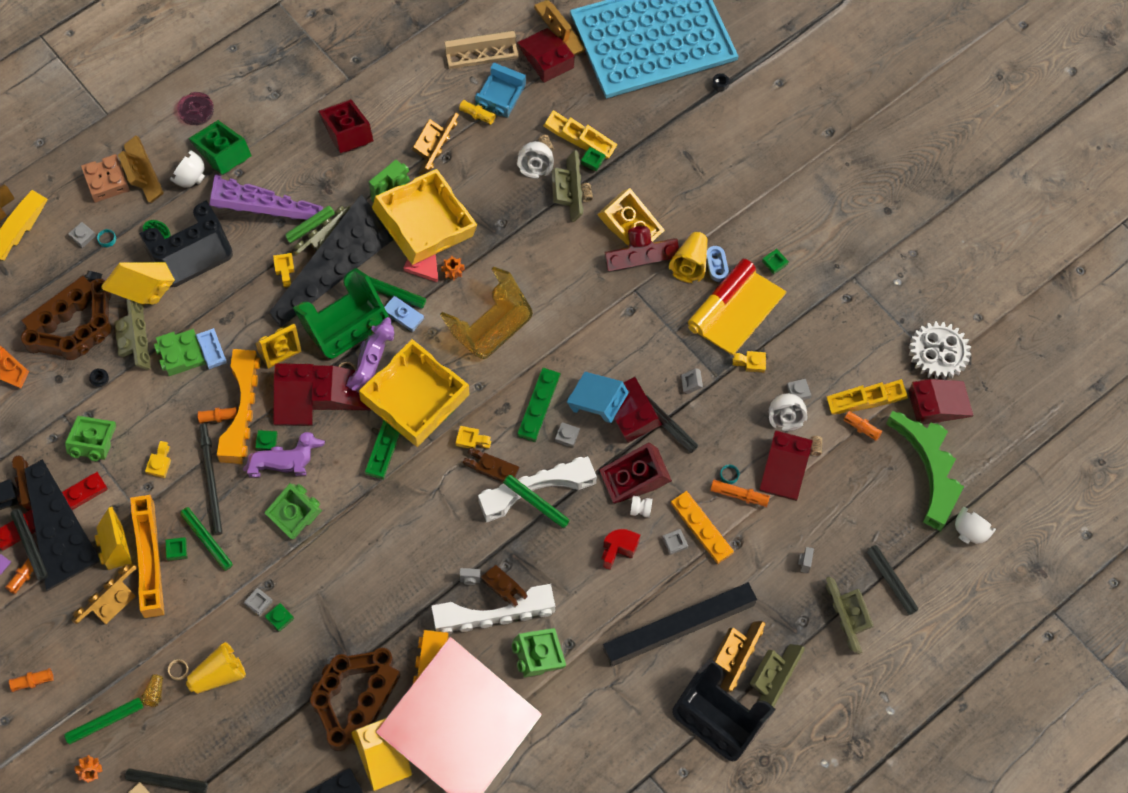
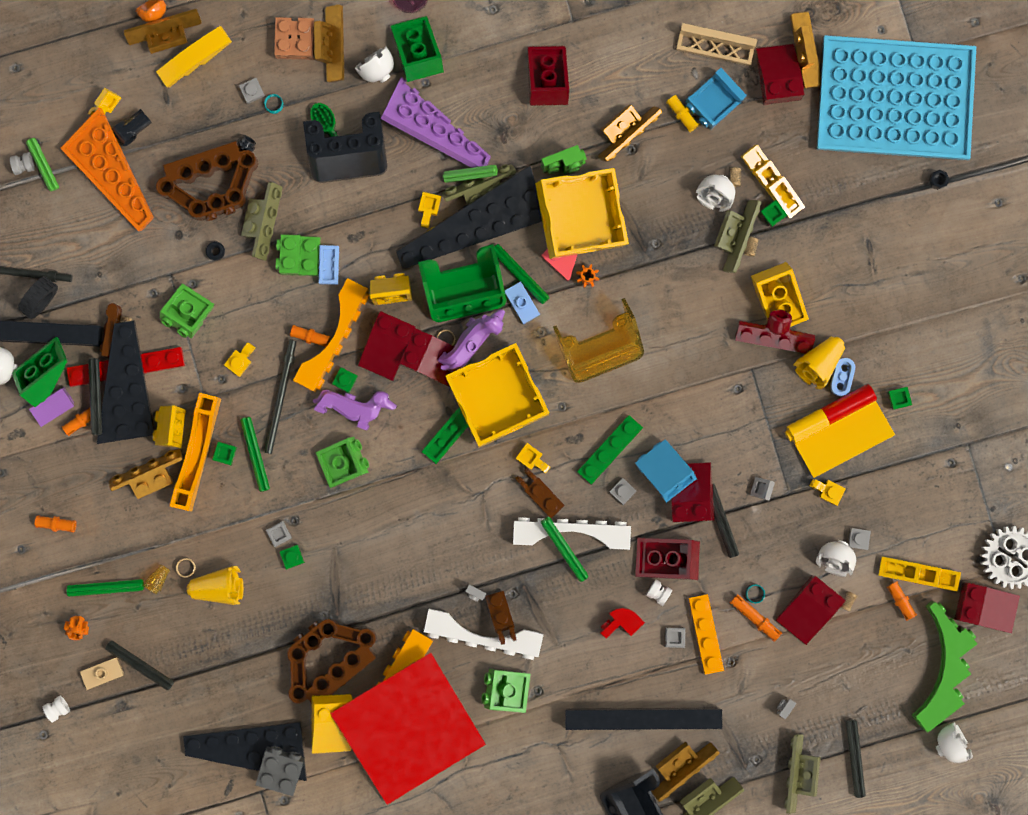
camera: 20 degrees right, 20 degrees up
(140, 281) = (286, 176): yellow slope -> none

